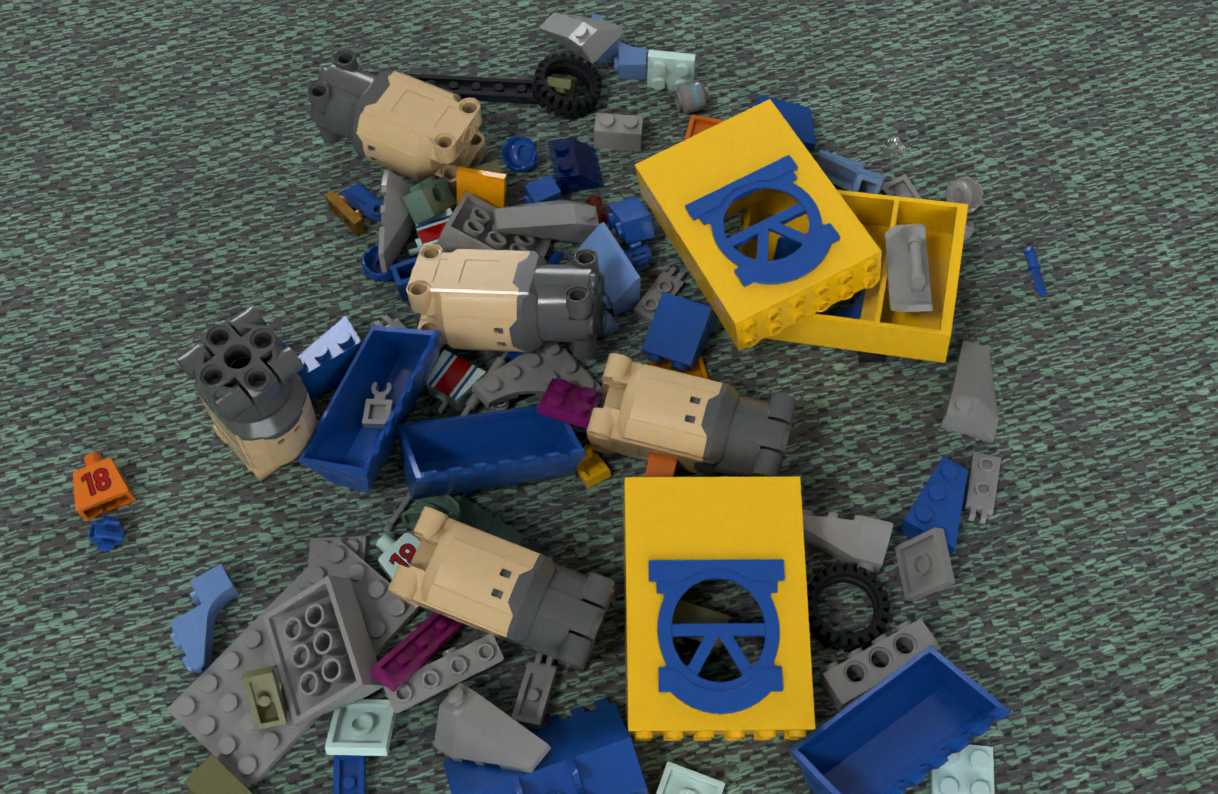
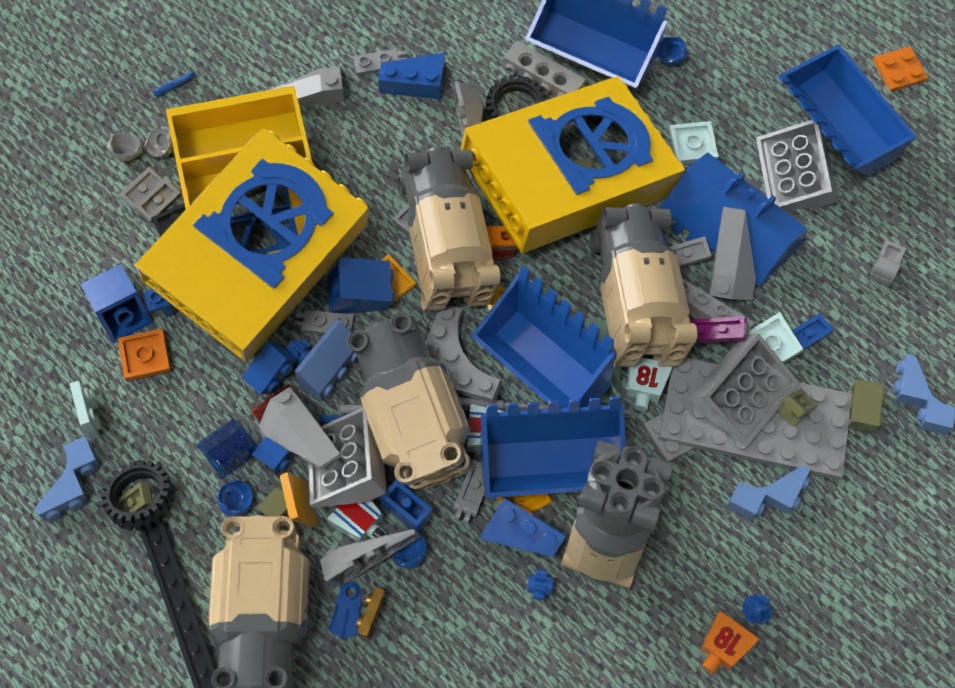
camera: 120 degrees left, 5 degrees up
(379, 408) = (551, 454): light grey plate -> none
(428, 199) = (330, 536): sand green brick -> none
(569, 402) = (470, 321): magenta plate -> none
(582, 35) = (68, 509): light grey wedge -> none
(618, 132) = (172, 427): light grey brick -> none
(691, 97) = (104, 386): light grey head -> none
(850, 173) = (142, 228): medium blue arch -> none
(908, 268) = (239, 130): light grey piece -> none
(924, 564) = (464, 65): light grey plate -> none

